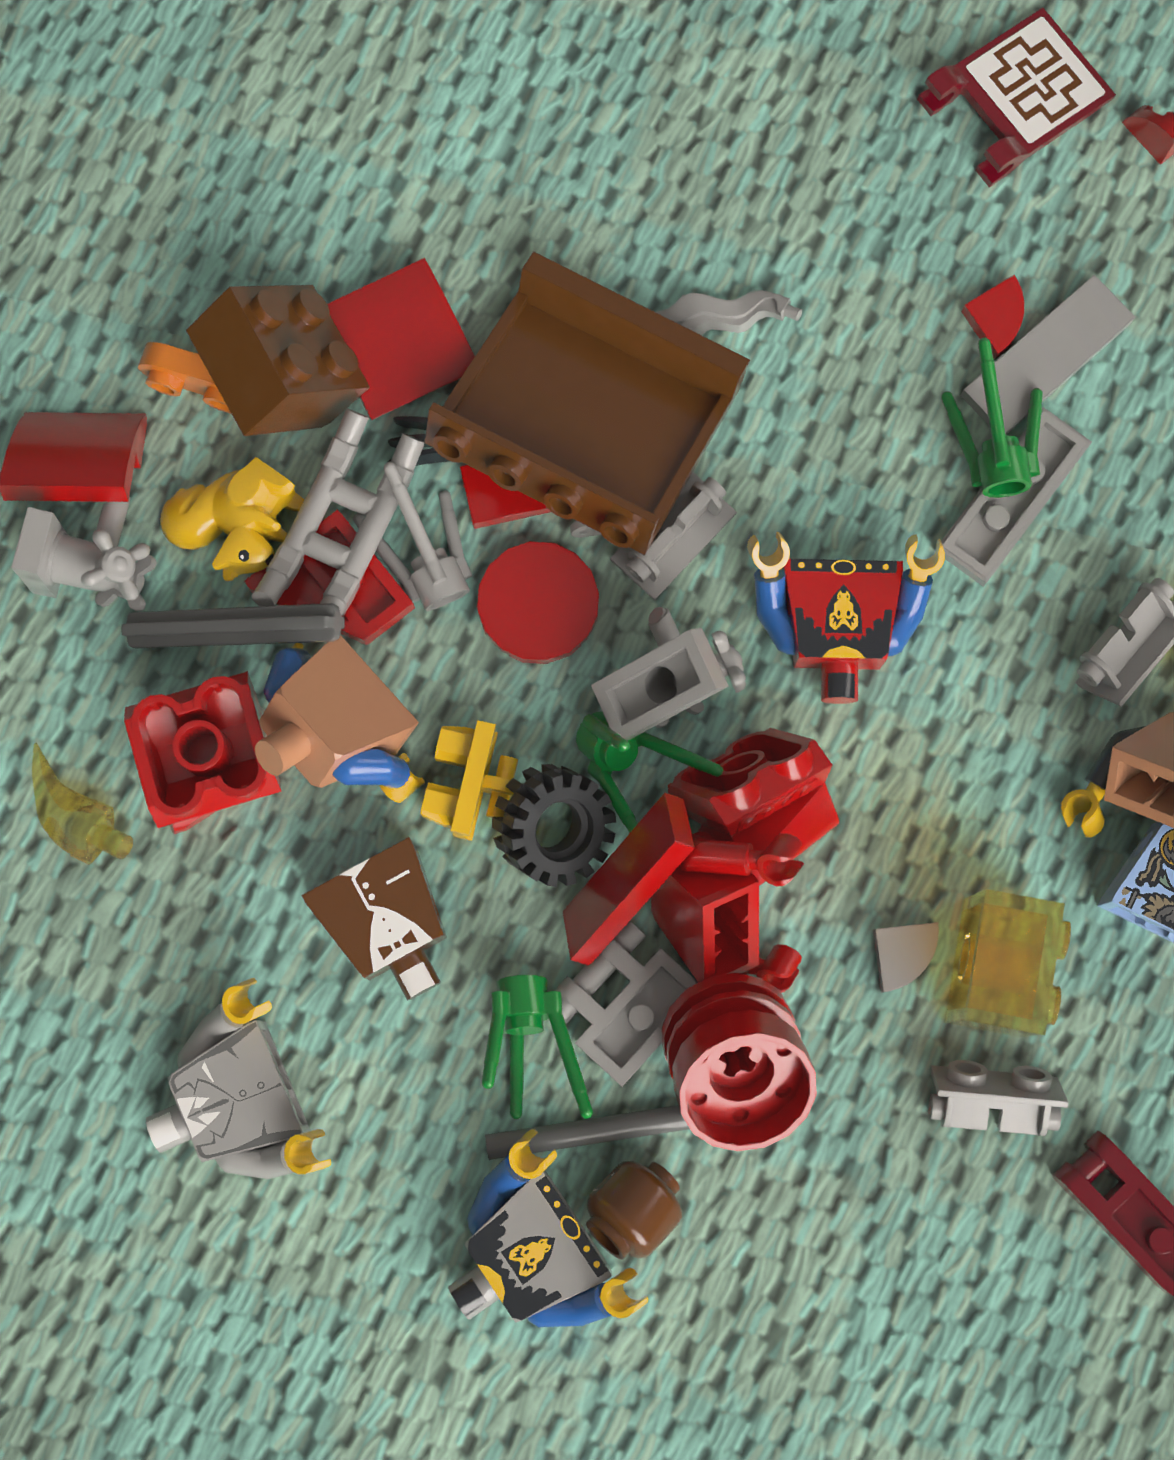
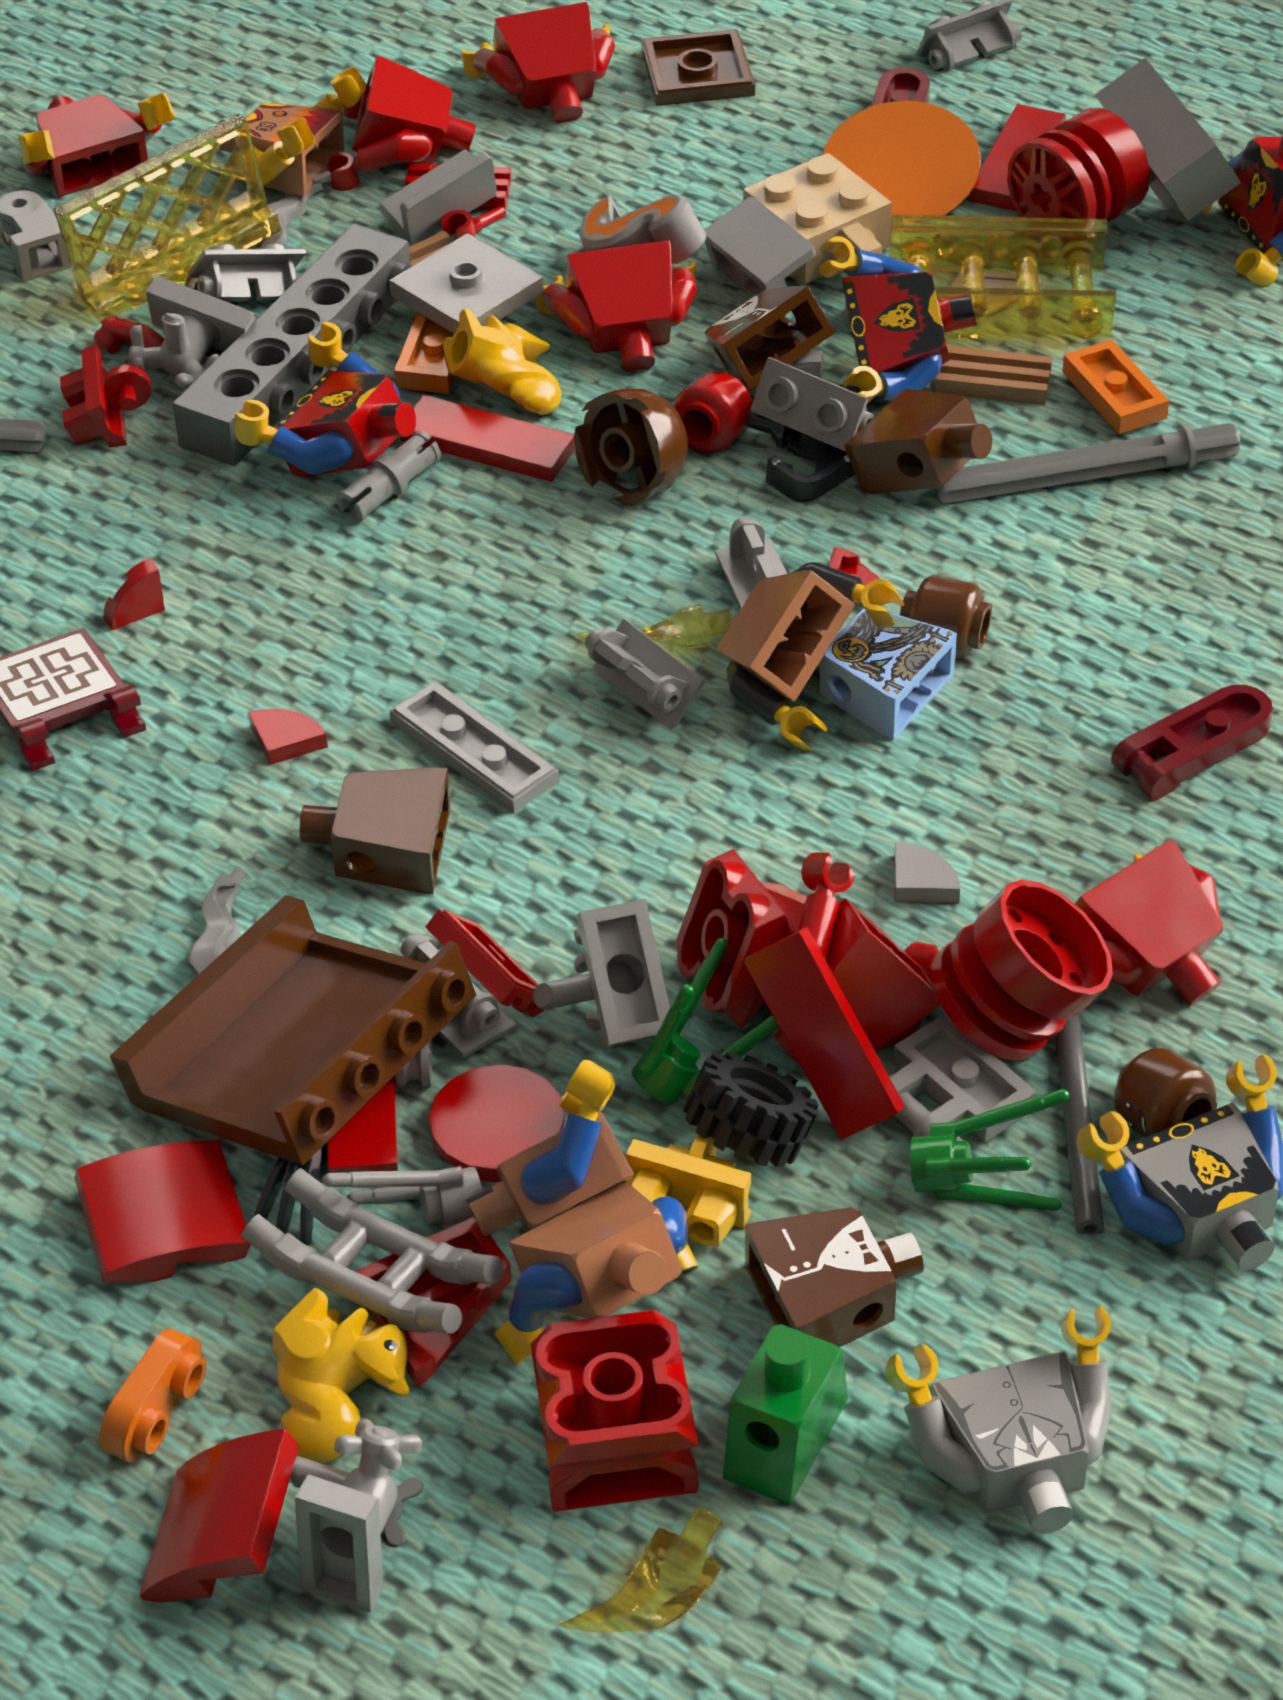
camera: 80 degrees left, 35 degrees down
(231, 898) = (798, 1392): none -> green torso
(234, 626) = (471, 1365): dark grey axle -> none
(277, 358) = (167, 1281): reddish brown brick -> none
(445, 671) = (561, 1169): none -> torso
(708, 554) = (487, 961): none -> red tile
(841, 610) = (563, 860): torso -> none
(852, 1182) = (1158, 922): none -> torso
(875, 434) = (385, 827): none -> torso
(1003, 465) = (442, 726): green plant -> none
(1007, 964) = (946, 777): clear yellow brick -> none
(1026, 1098) = (1073, 829): light grey hinge -> none
(1053, 351) = (339, 704): light grey tile -> none

